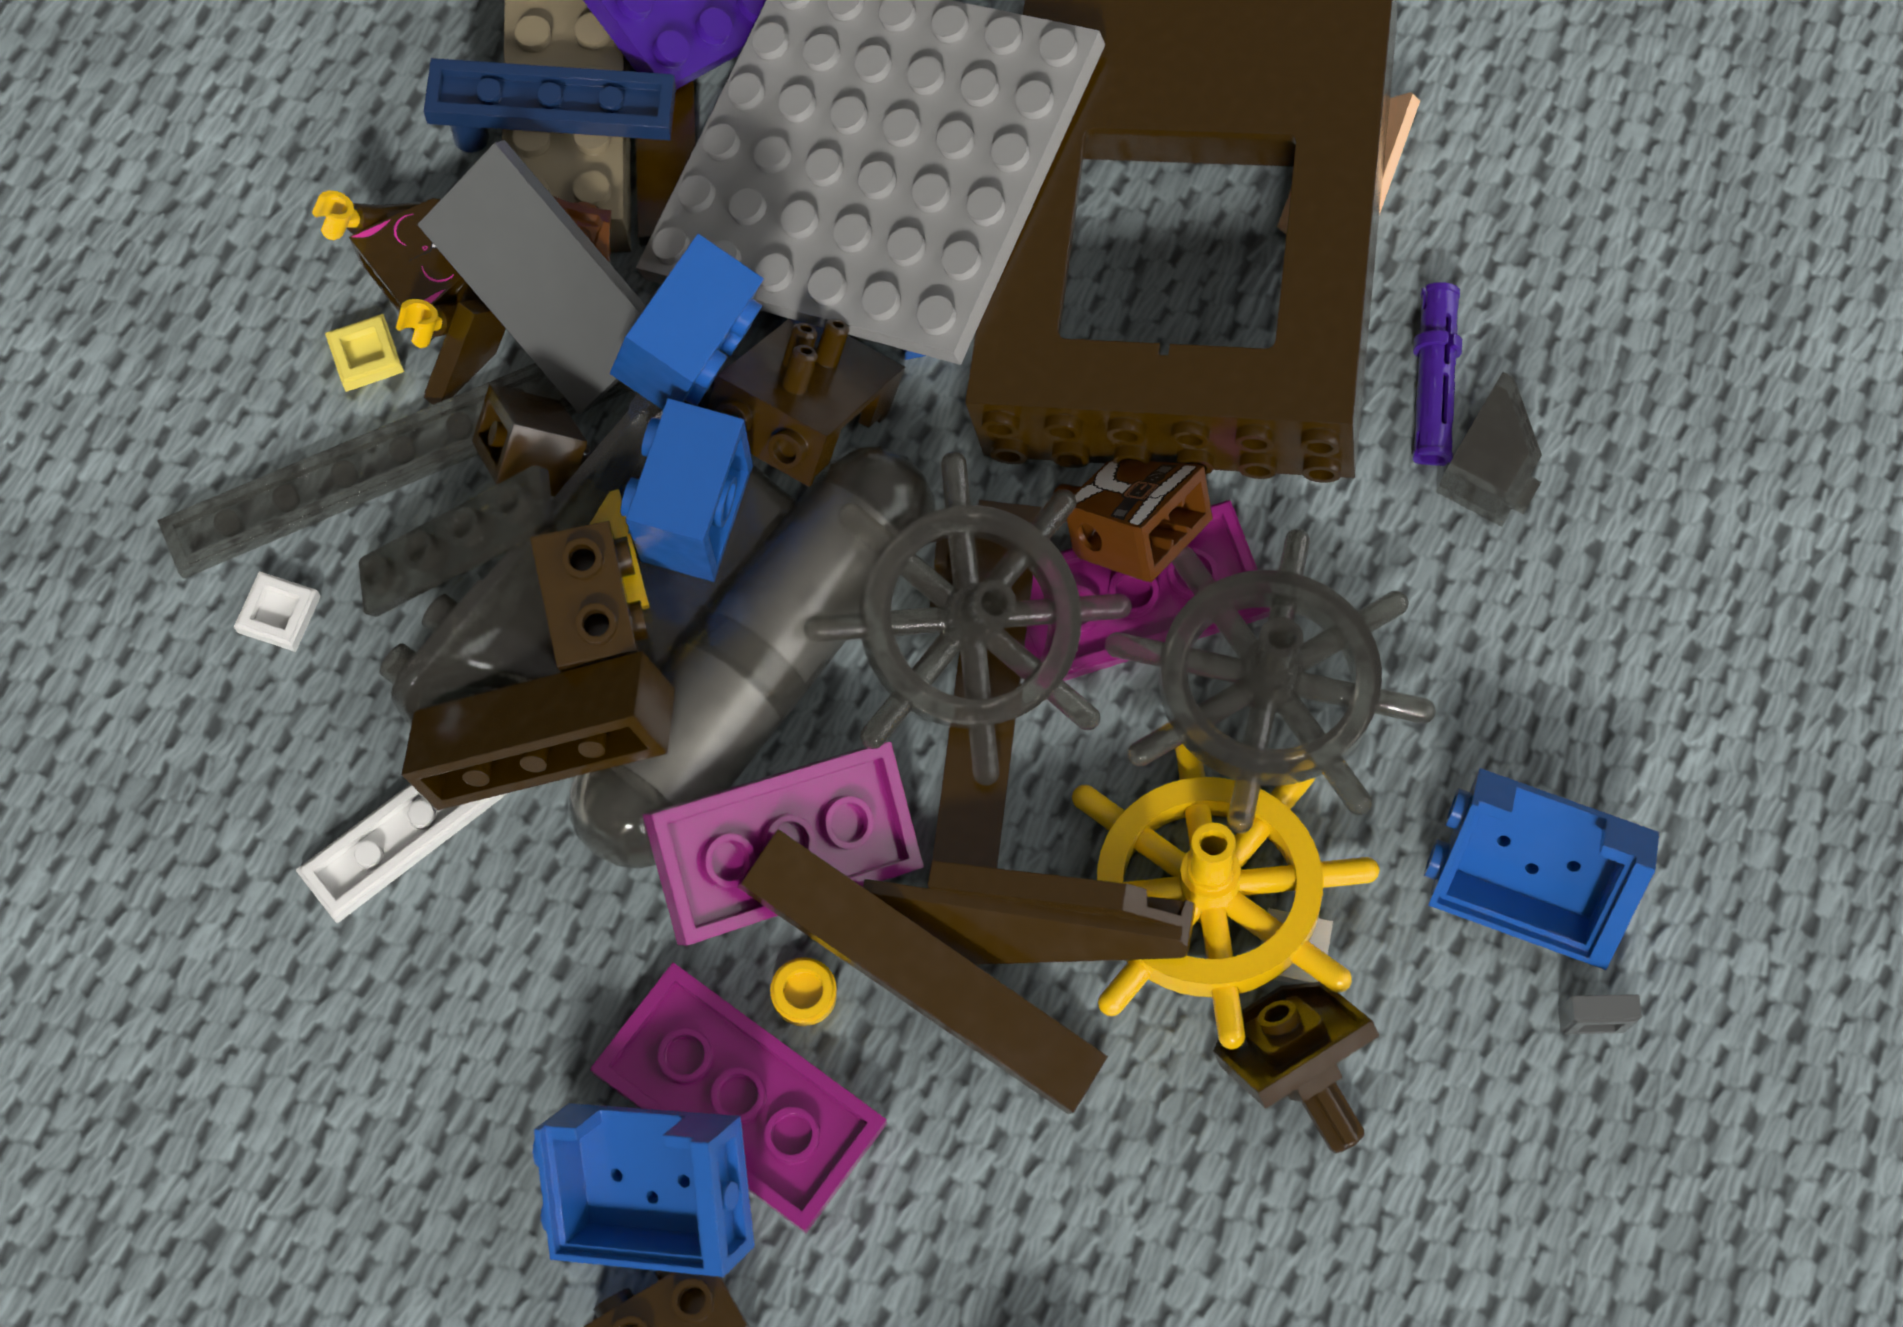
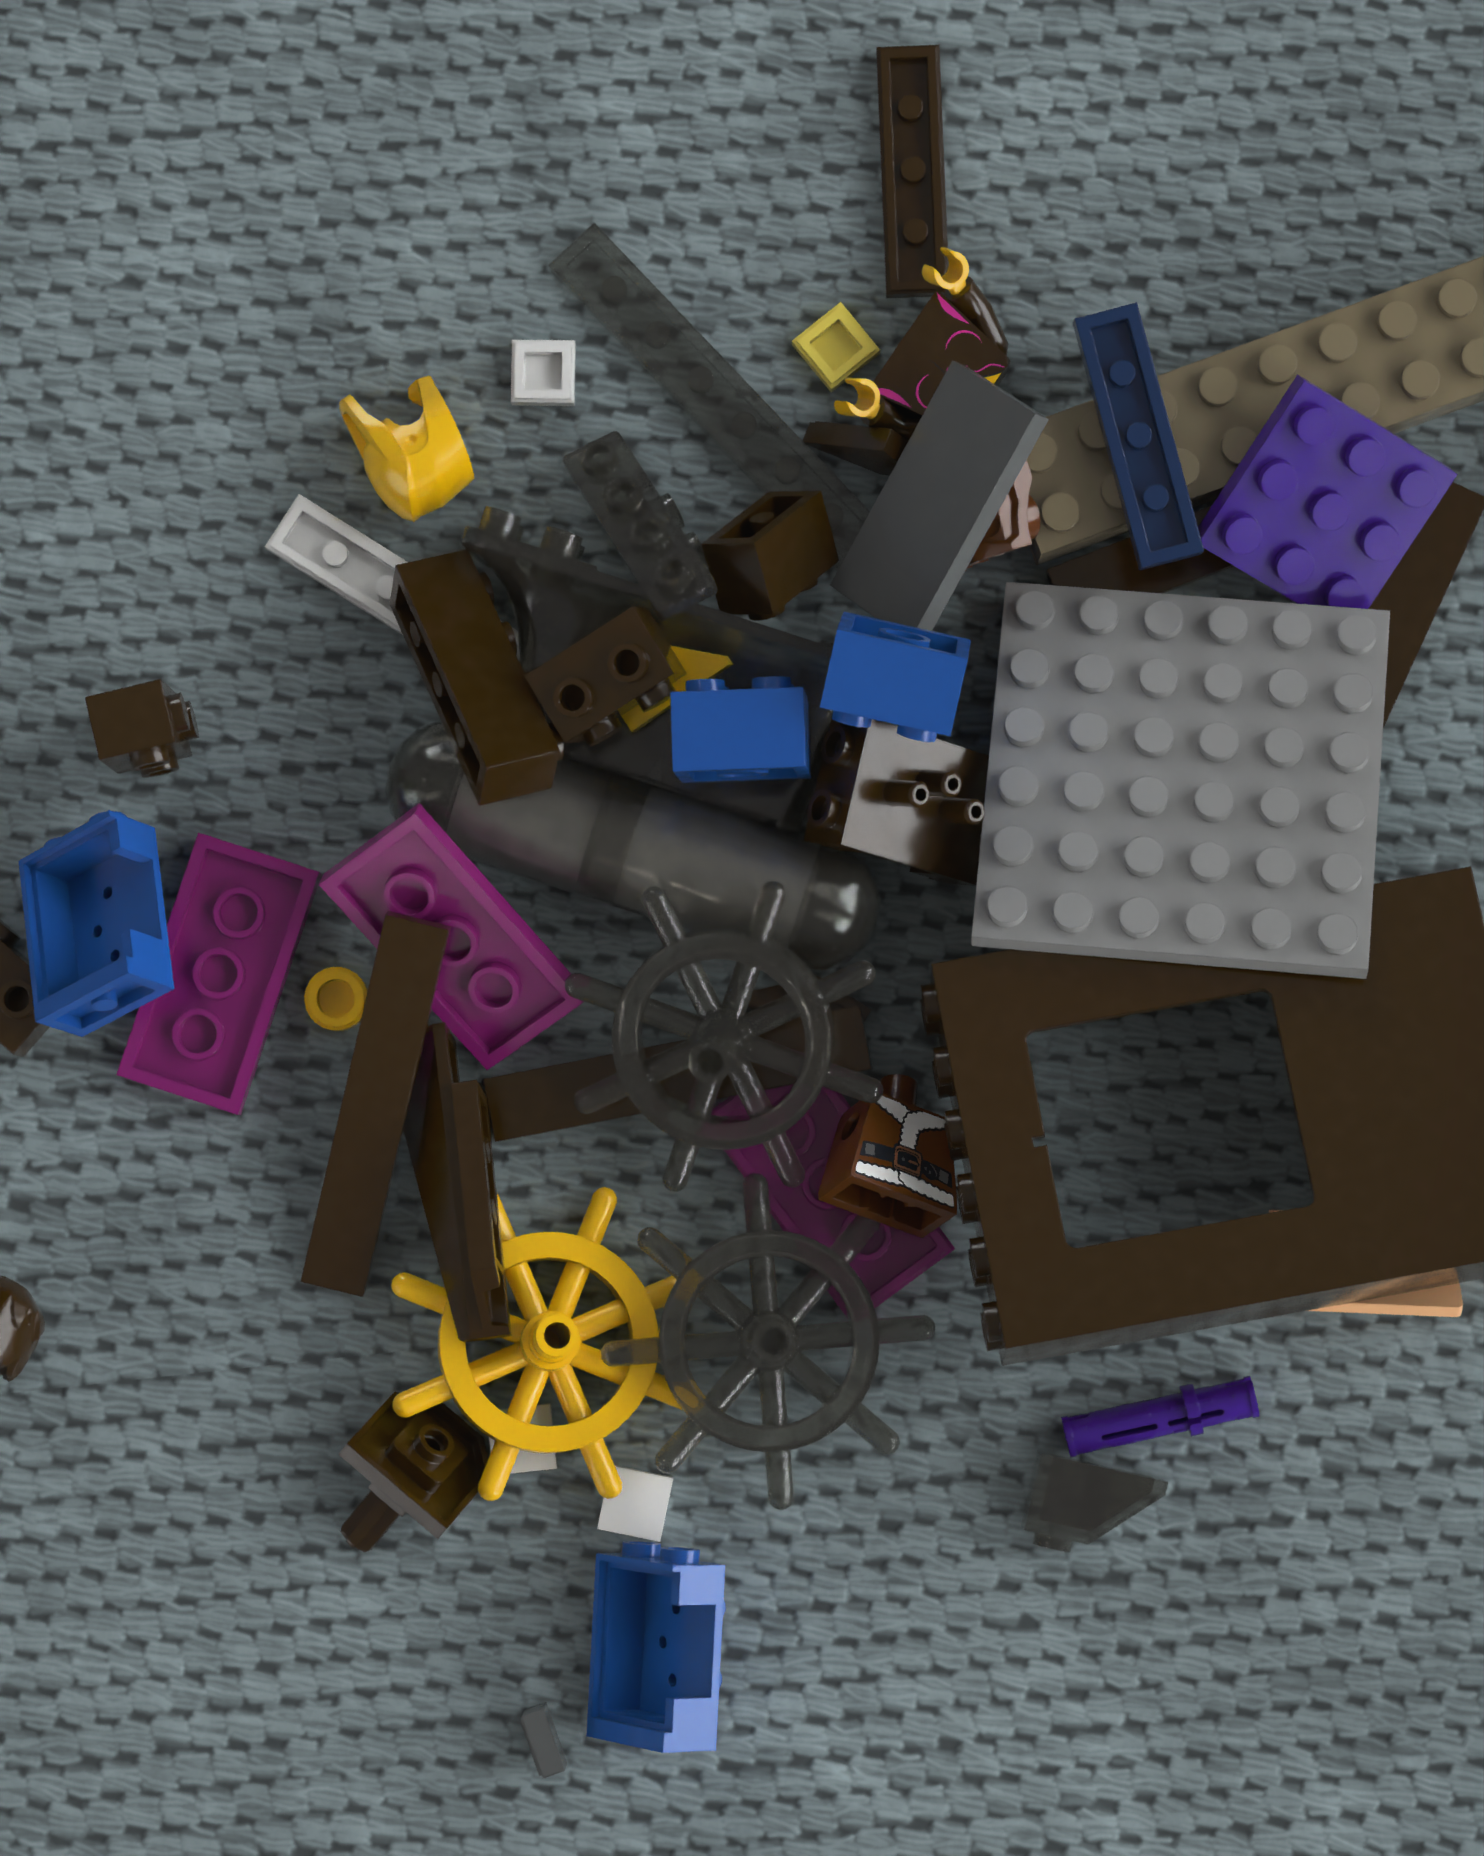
camera: 75 degrees right, 15 degrees up
(234, 241) = (911, 167): none -> dark brown tile
(309, 747) = (414, 464): none -> yellow helmet
(462, 1083) = (142, 728): none -> dark brown brick
(1397, 855) = (640, 1505): none -> white tile

